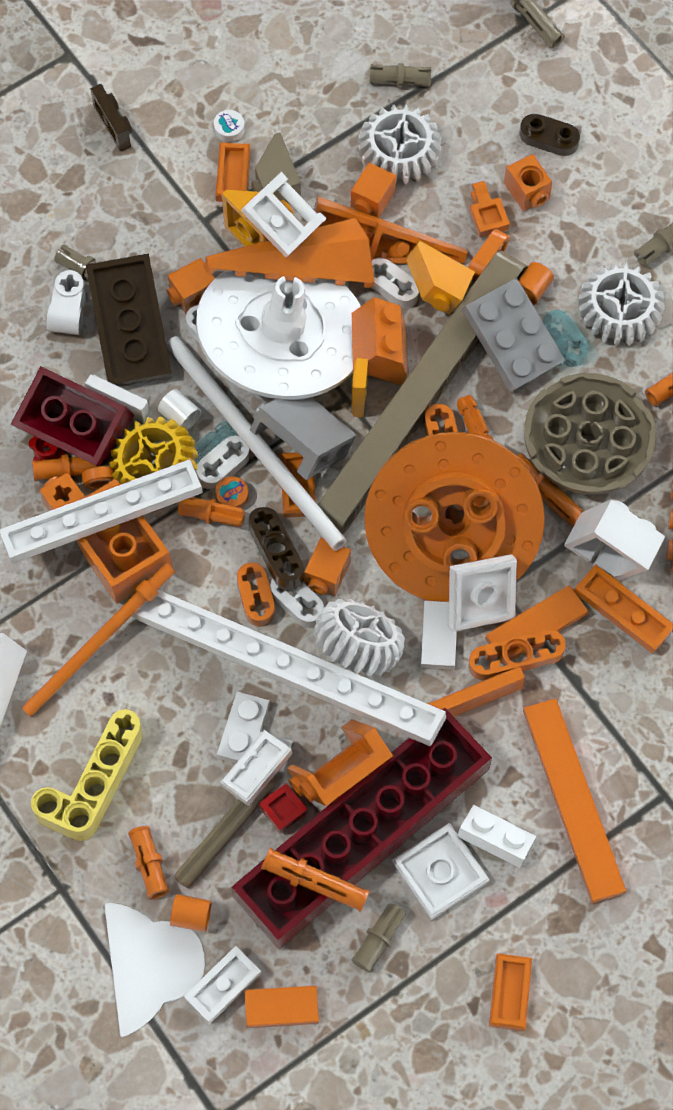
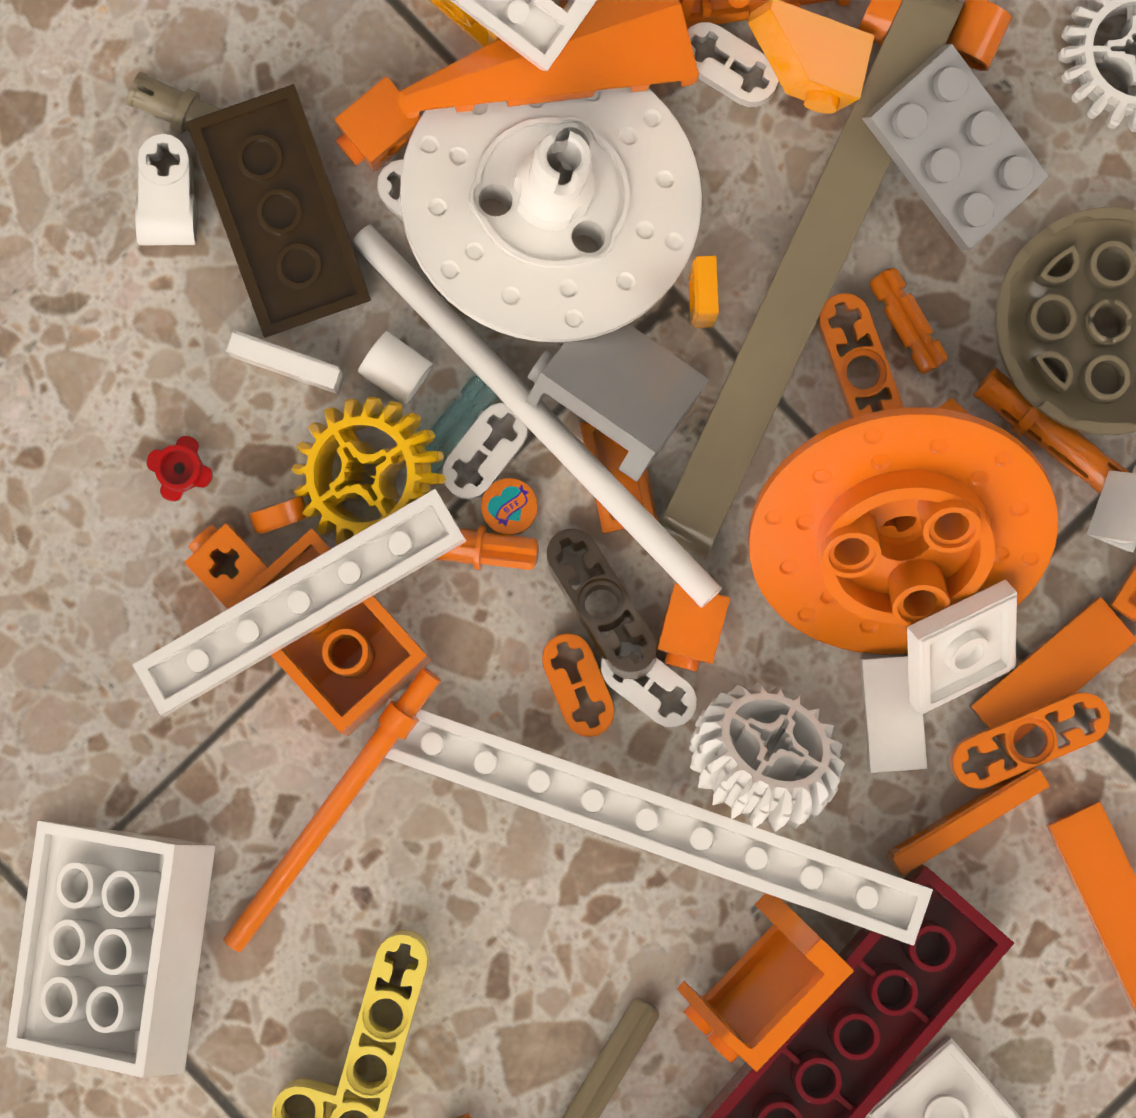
camera: 10 degrees left, 20 degrees up
(57, 467) = (219, 501): orange pin -> none
(72, 417) = (214, 416): dark red slope -> none
(244, 728) = (597, 944): white plate -> none
(256, 768) = (629, 1002): white plate -> none
(283, 808) = (679, 1053): red plate -> none
(381, 337) = (725, 198): orange slope -> none
(496, 836) = (1030, 1051): white plate -> none
(570, 335) = (1053, 122): clear light blue beam -> none

